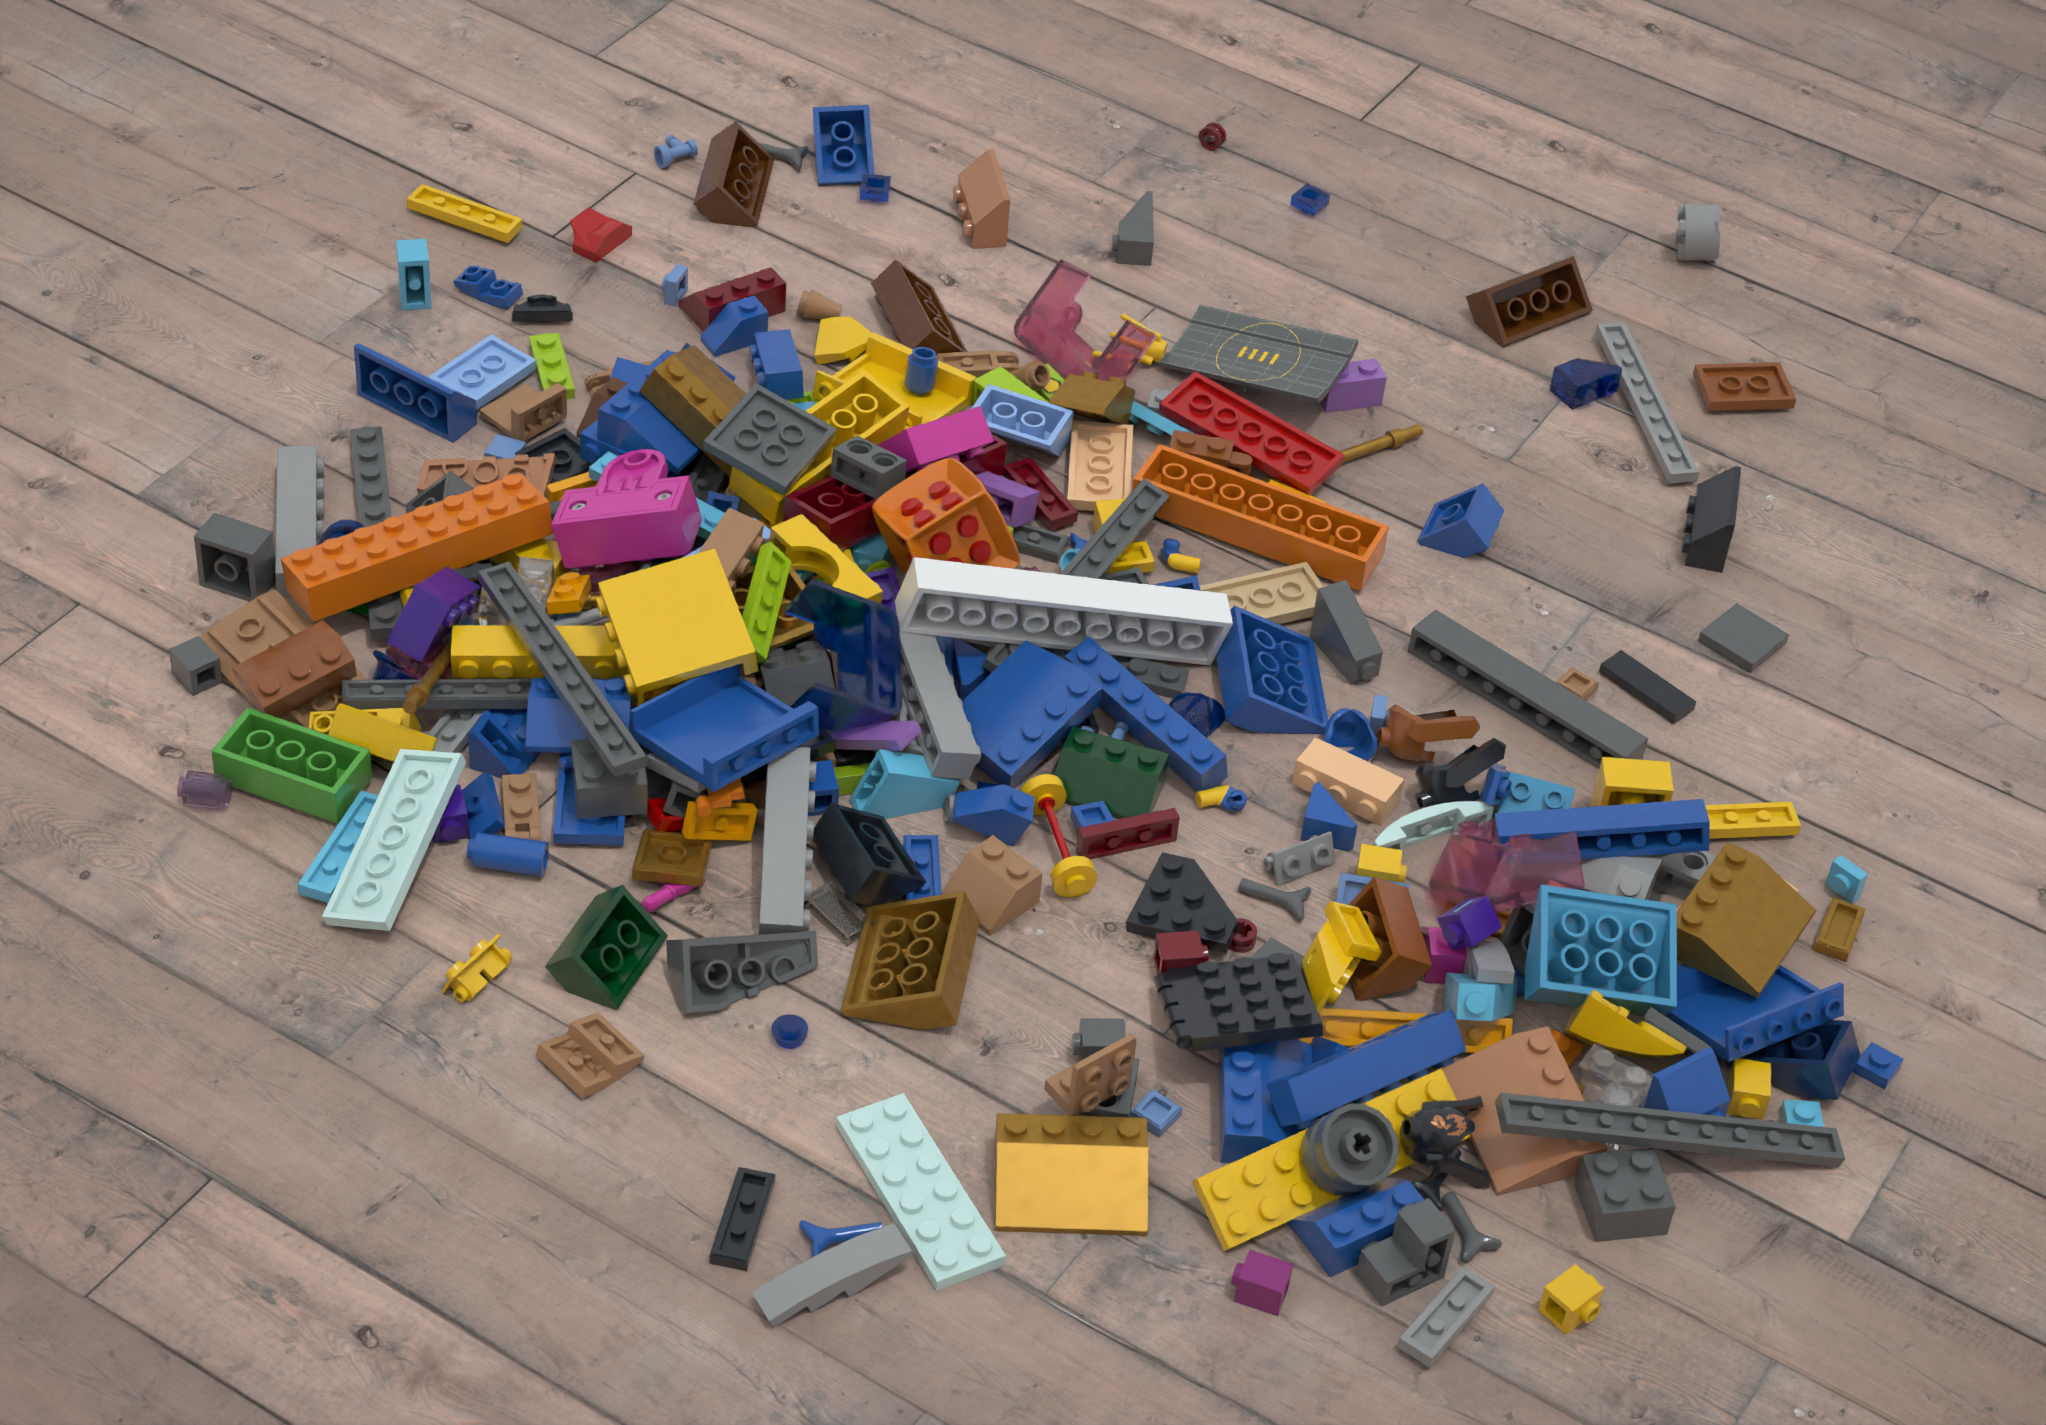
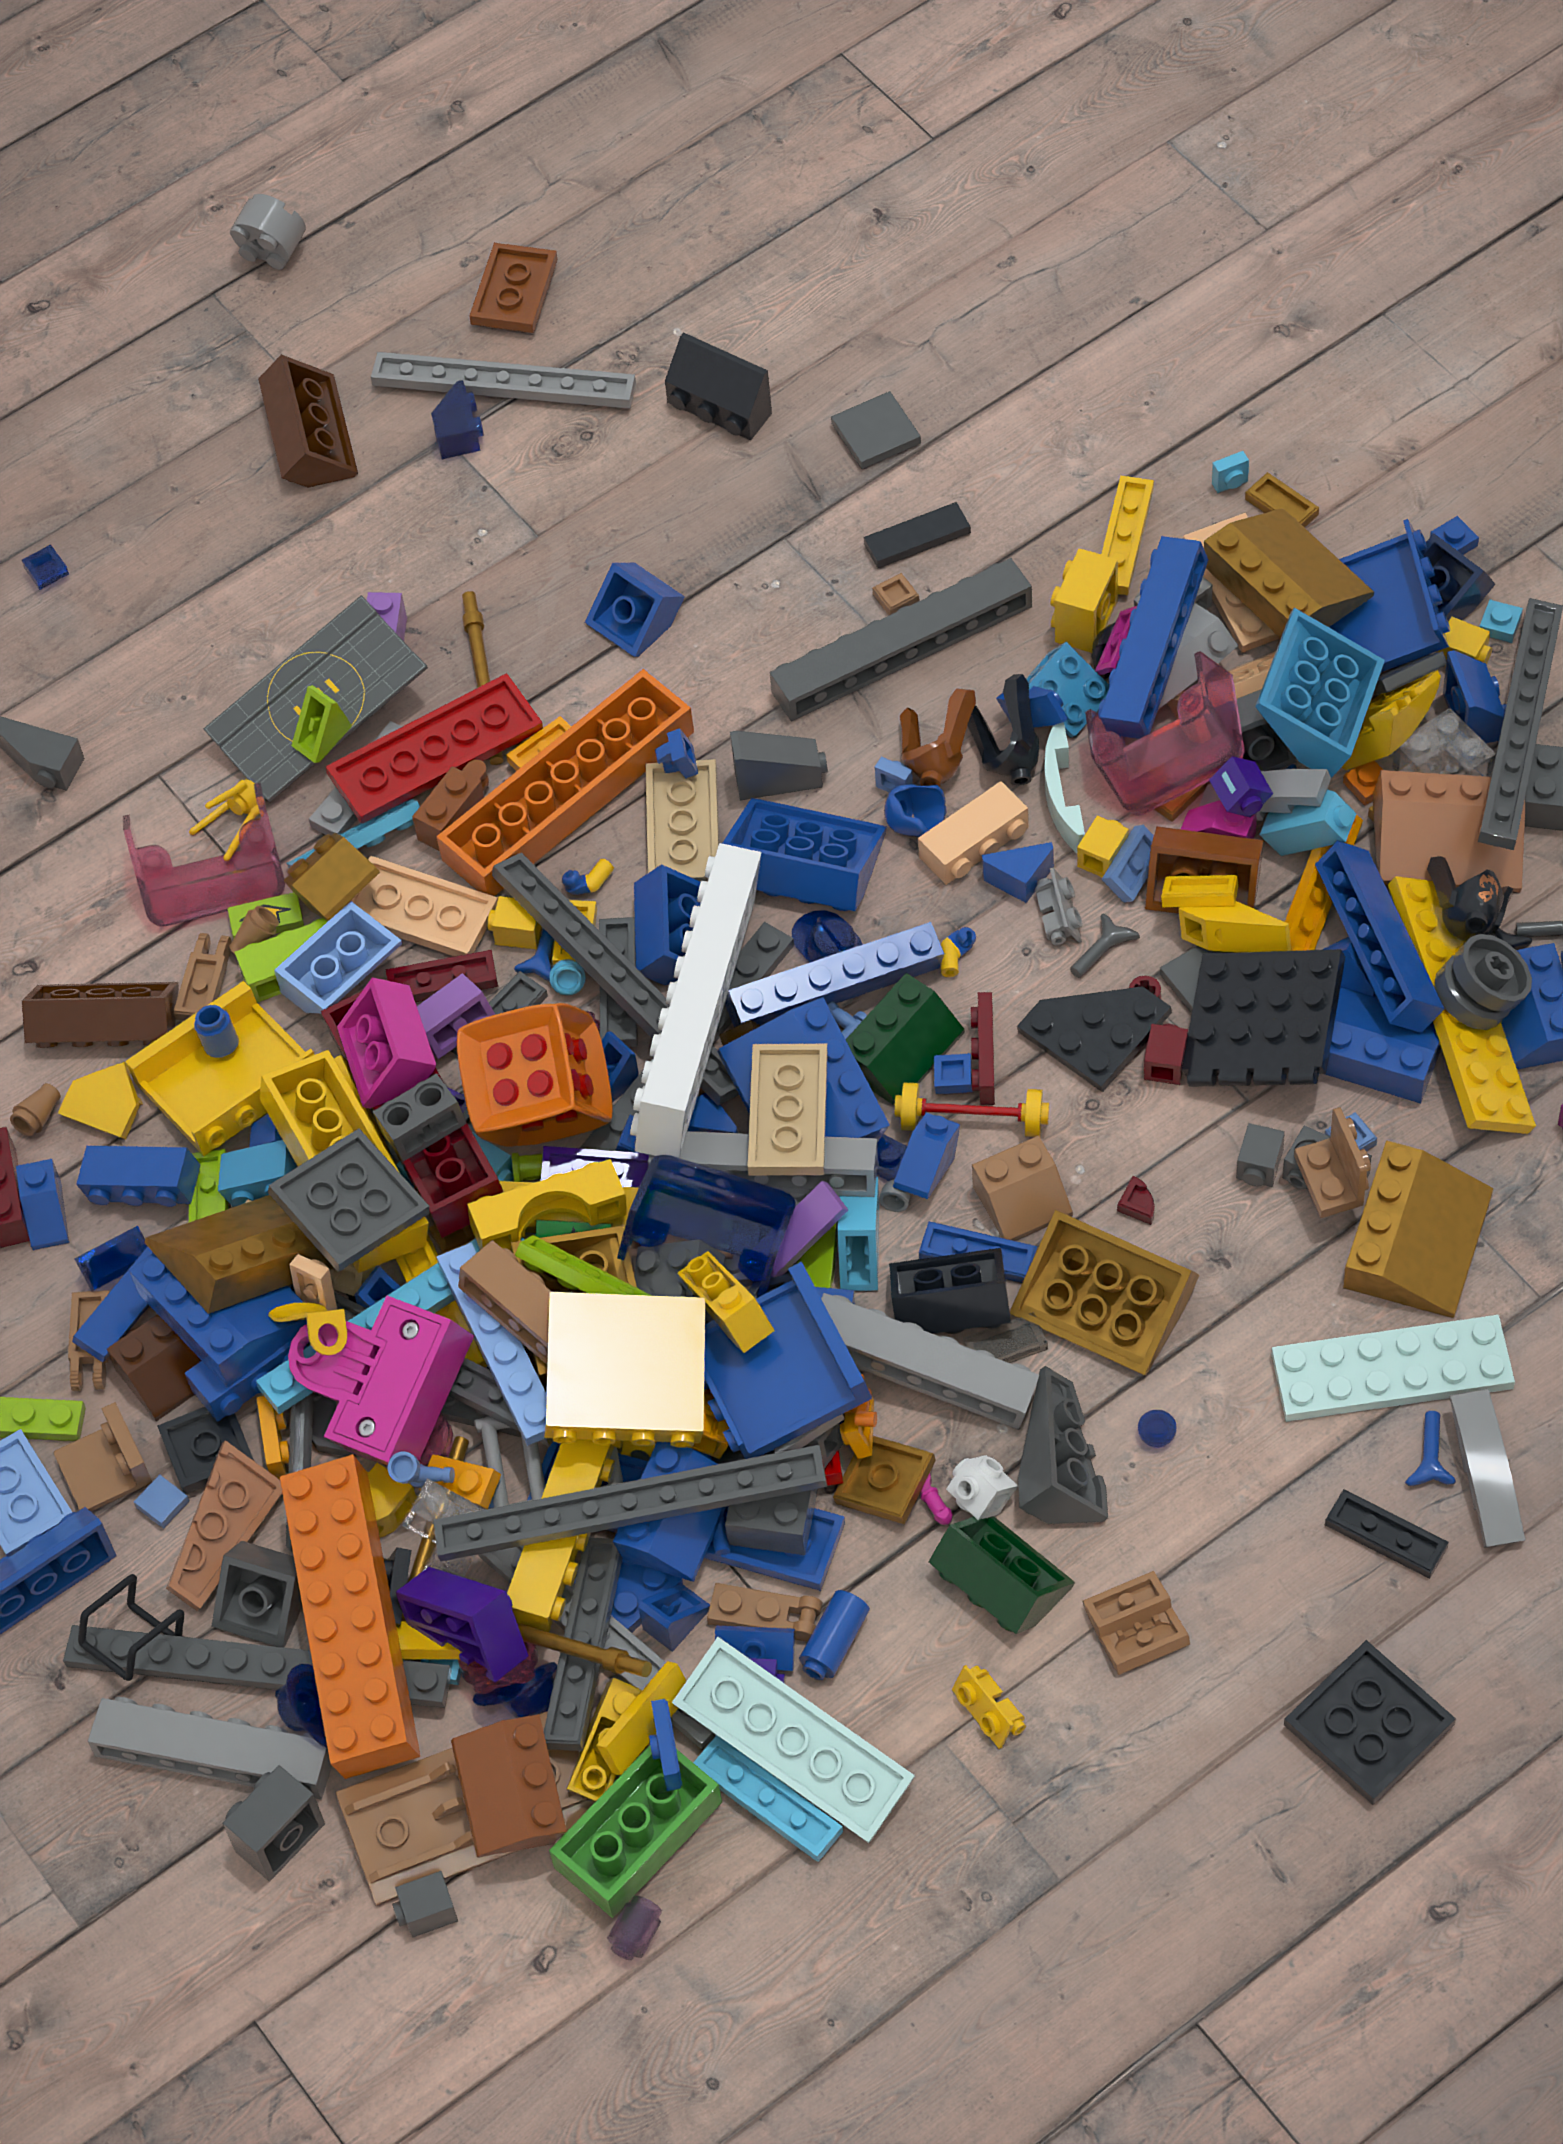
camera: 60 degrees left, 15 degrees up
(353, 745) = (664, 1745): none -> blue plate
(401, 470) = (131, 1582): none -> black piece
(539, 1237) = (1369, 1722): none -> black plate
(552, 539) = (405, 1469): none -> medium blue piece
(662, 448) = (316, 1316): none -> yellow piece
(681, 914) = (981, 1486): none -> white brick
(698, 470) = (312, 1282): none -> light nougat plate
(763, 680) = (727, 1301): none -> yellow slope
(974, 681) = (787, 1109): none -> tan plate
(1021, 974) = (1137, 1201): none -> dark red tile
(1233, 358) = (319, 725): none -> lime slope
(1320, 570) = (677, 754): none -> blue tile

